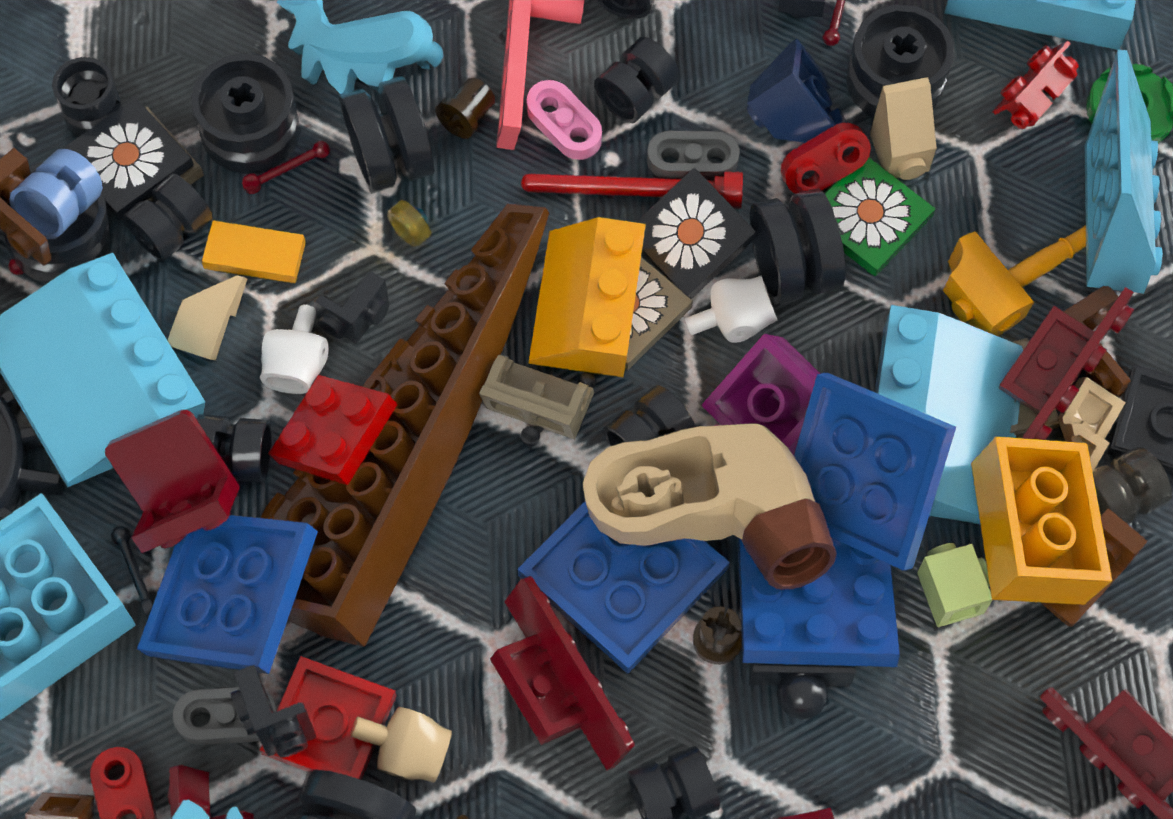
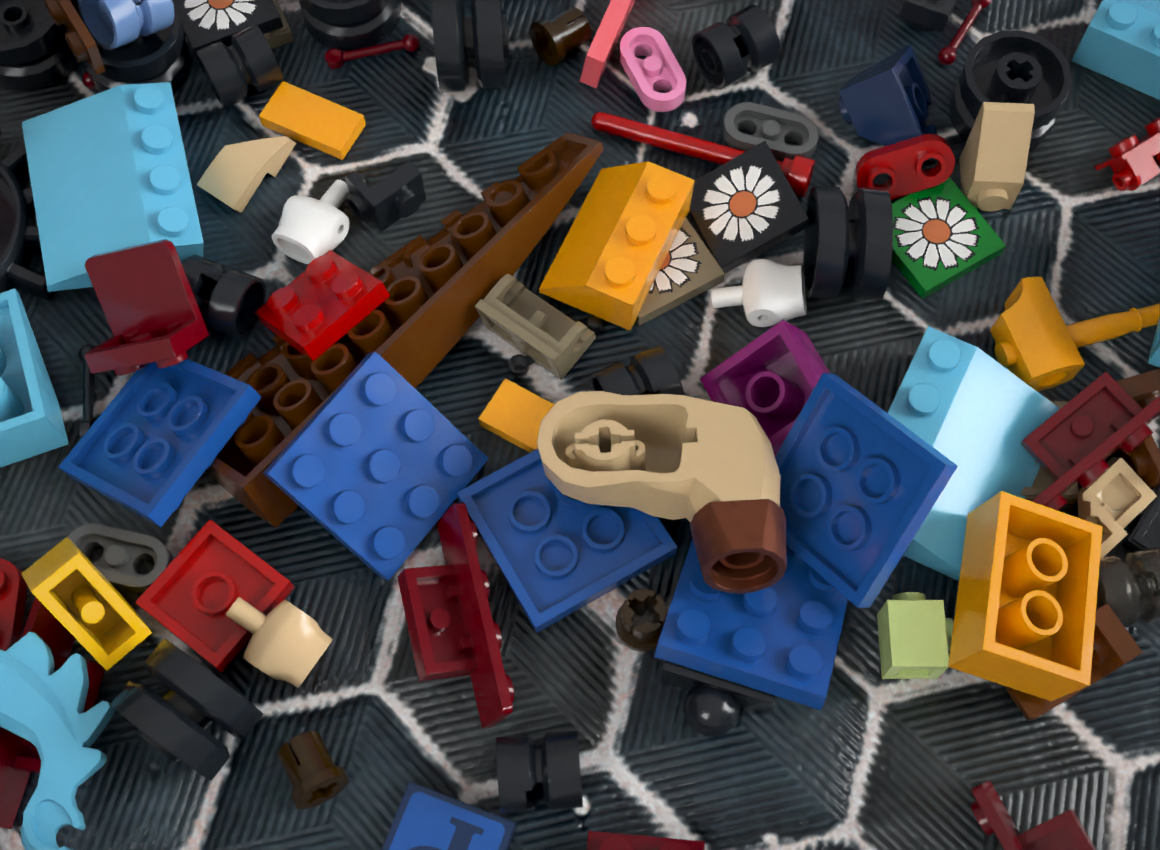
camera: 20 degrees right, 0 degrees up
(223, 760) = (86, 603): none -> yellow brick
(279, 731) = (137, 568): black bracket -> none
(409, 223) = (468, 128): clear yellow tile -> none
(441, 564) = (376, 465): none -> blue plate
(549, 484) = (515, 415): none -> light orange tile

